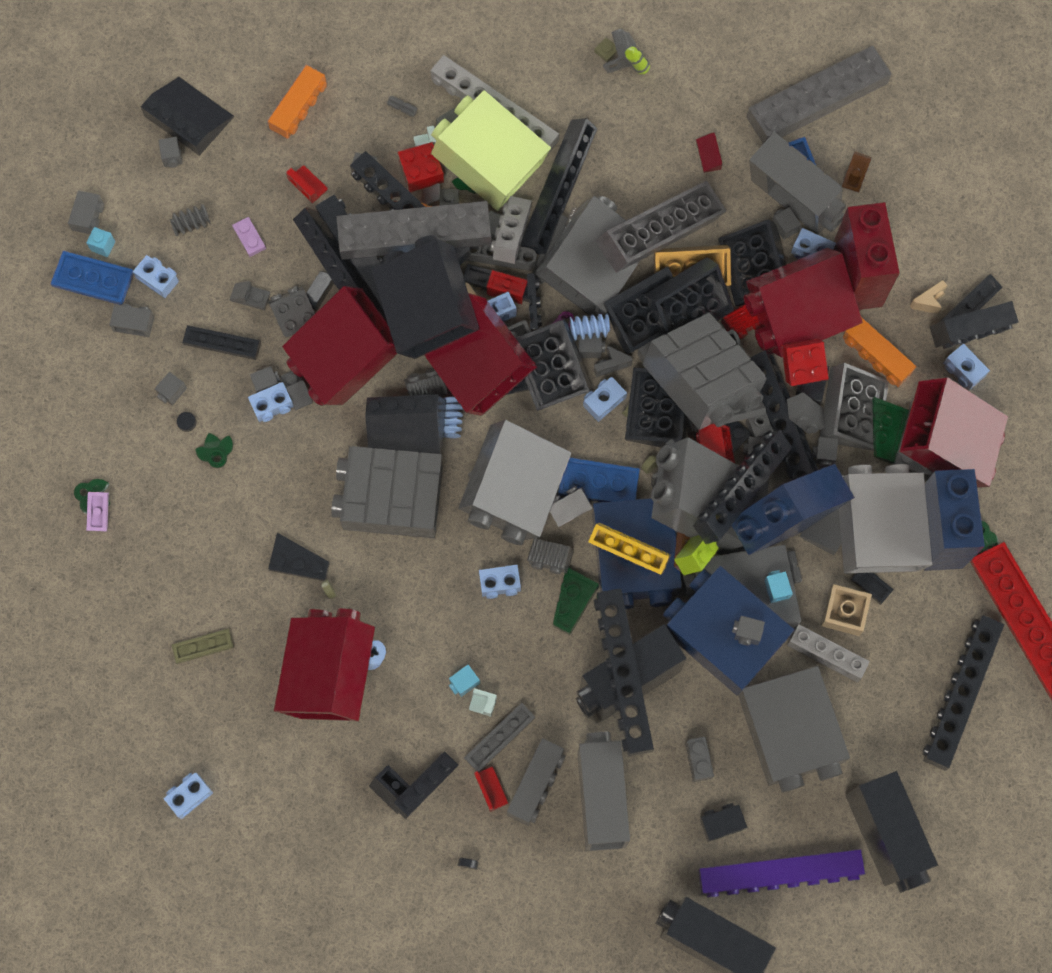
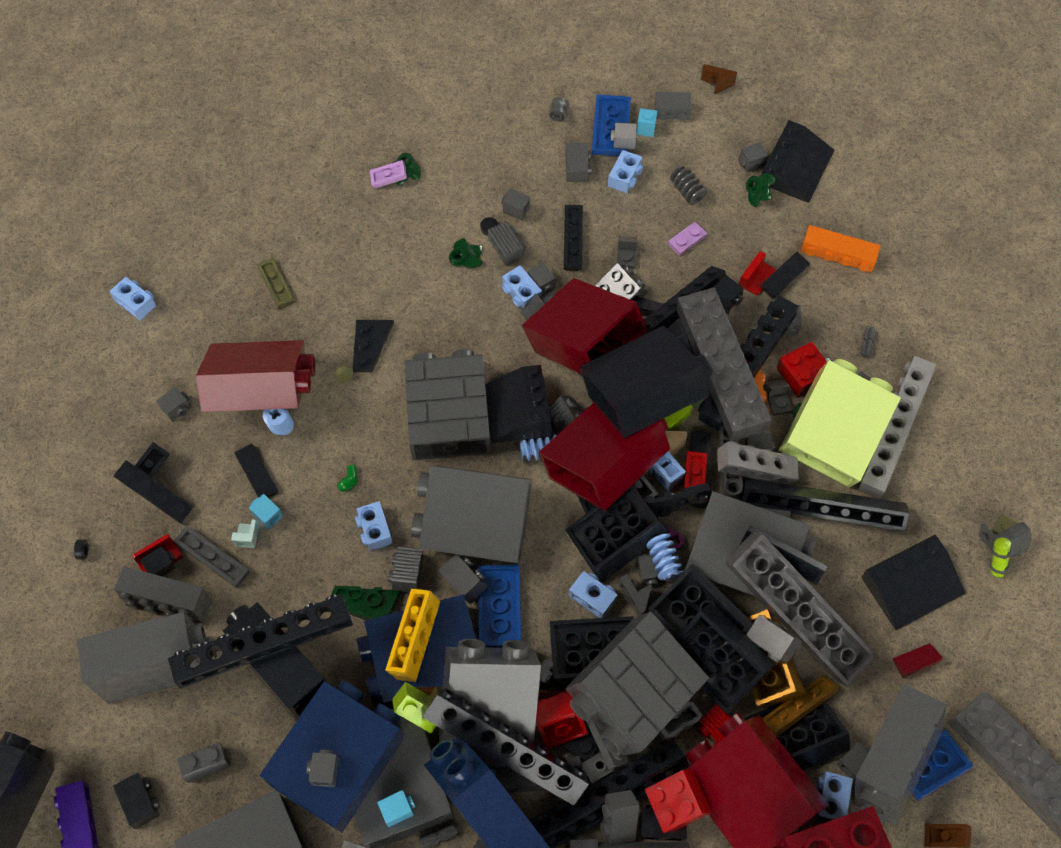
camera: 80 degrees right, 10 degrees down
(58, 325) = (559, 108): none -> dark grey wheel
(62, 157) = (721, 77): none -> reddish brown slope
(116, 265) = (624, 135): none -> light grey brick
(212, 153) = (761, 188): none -> dark green plate
(213, 407) = (506, 242): none -> dark grey brick
(313, 158) = (785, 275): none -> black tile
(326, 760) = (174, 404): none -> dark grey brick
(417, 687) = (256, 471): none -> black tile
(446, 598) = (350, 480): none -> green arm
(501, 785) = (158, 562): none -> black brick
(628, 210) = (805, 565): none -> black plate
(641, 135) = (914, 582): none -> black slope
(685, 253) = (773, 638): none -> brick
(739, 261) = (798, 707): none -> pearl gold tile

